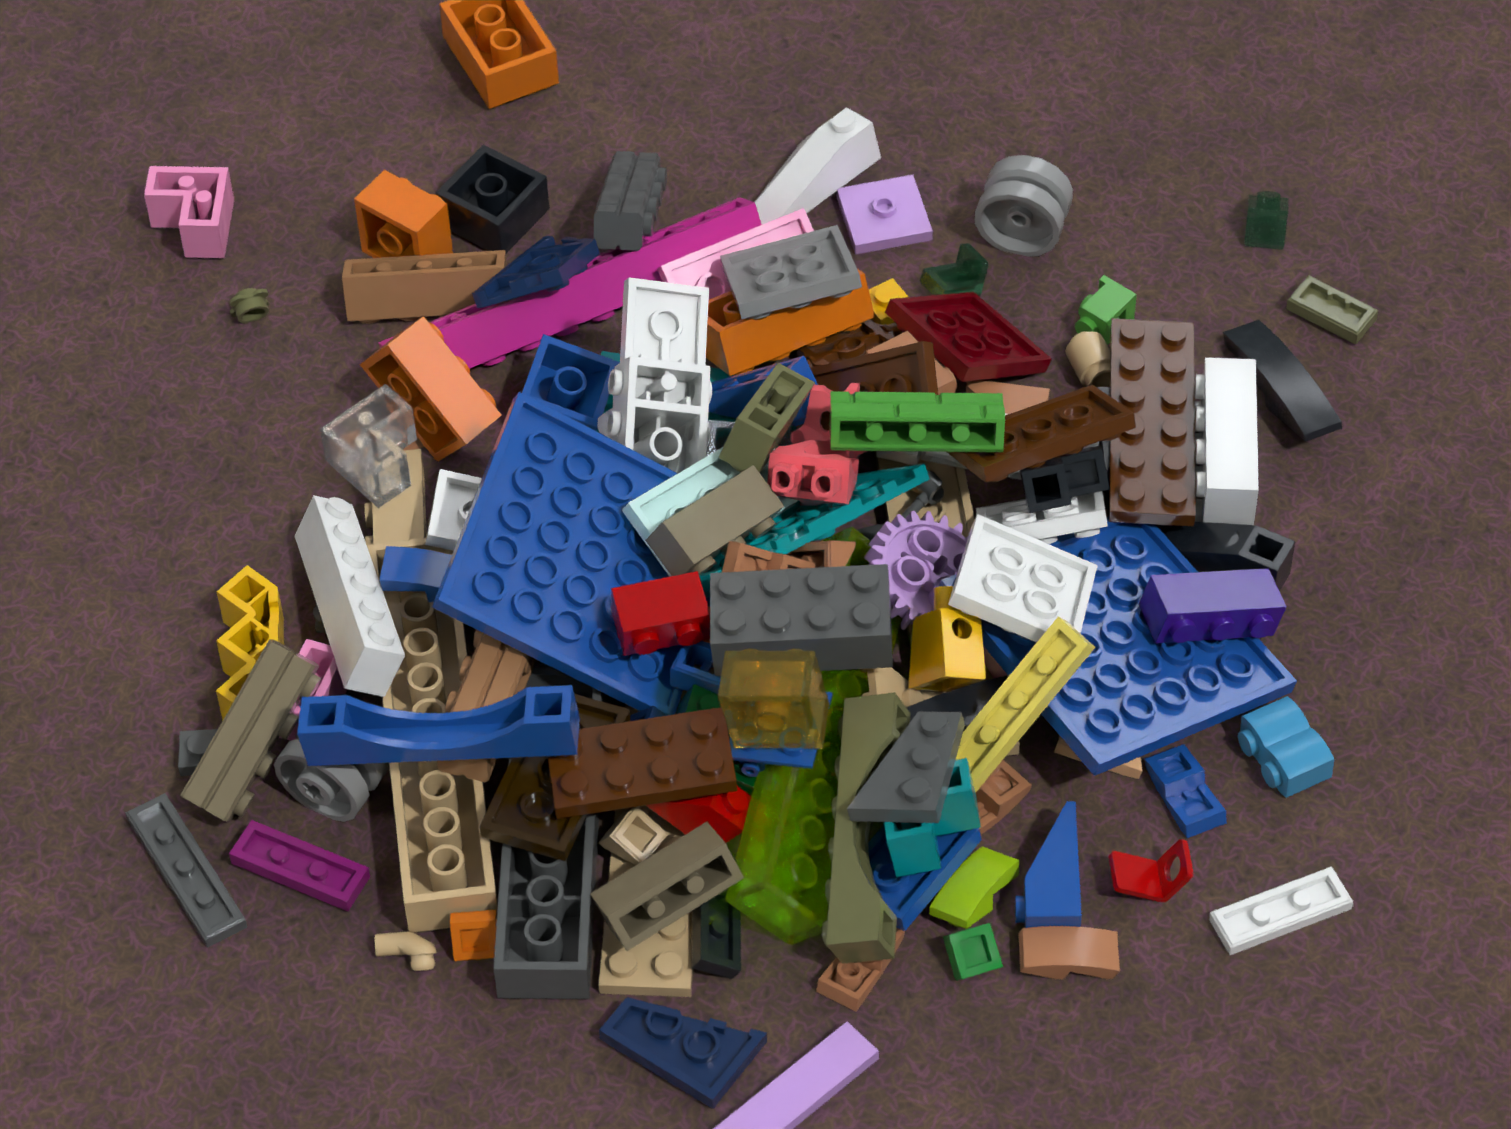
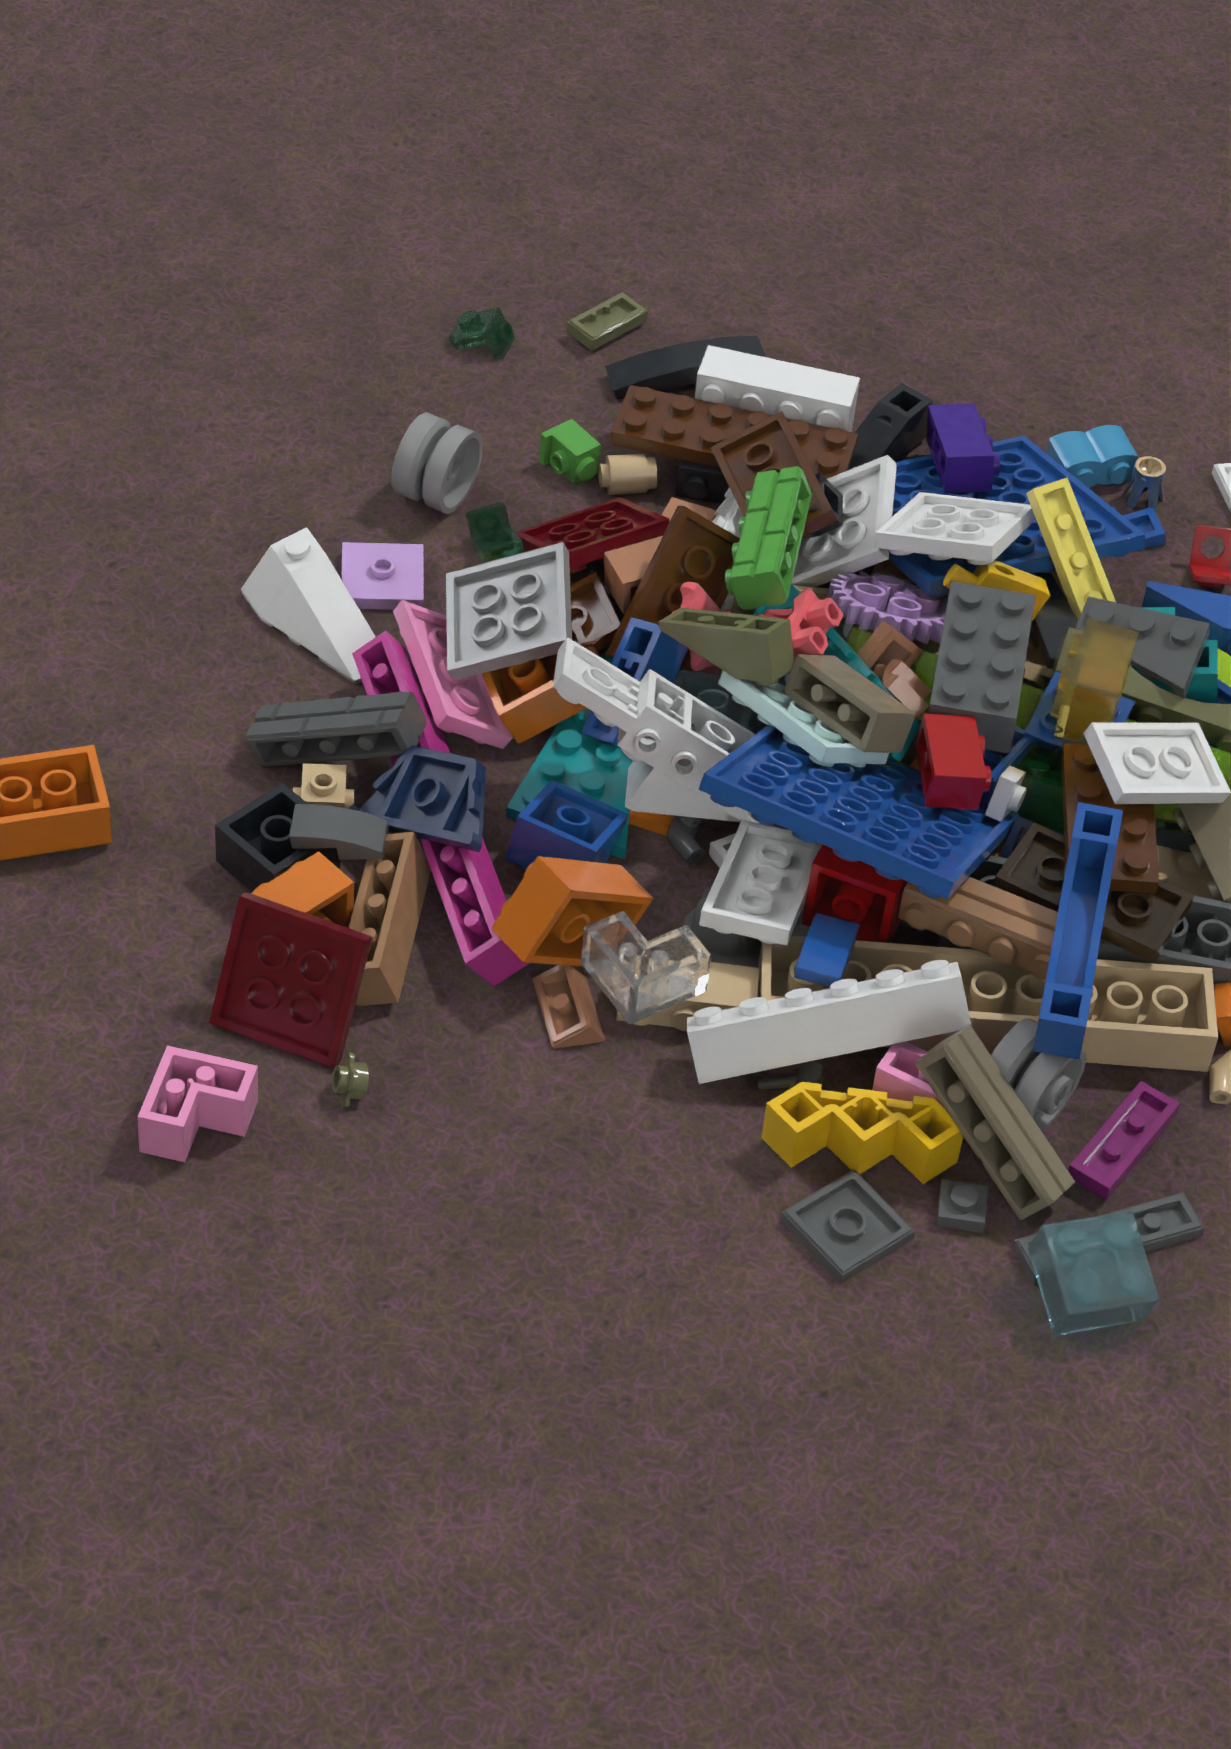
camera: 85 degrees left, 5 degrees down
(114, 842) = (1093, 1273): none -> clear light blue brick
(164, 671) = (847, 1226): none -> dark grey tile
(319, 227) = (290, 979): none -> dark red plate
(490, 220) = (349, 831): none -> dark grey slope
(561, 216) = (325, 785): none -> tan brick
(666, 684) = (1007, 794): none -> white plate
(693, 773) = (1156, 763): none -> white plate
(1260, 790) = (1147, 473): none -> flat silver piece

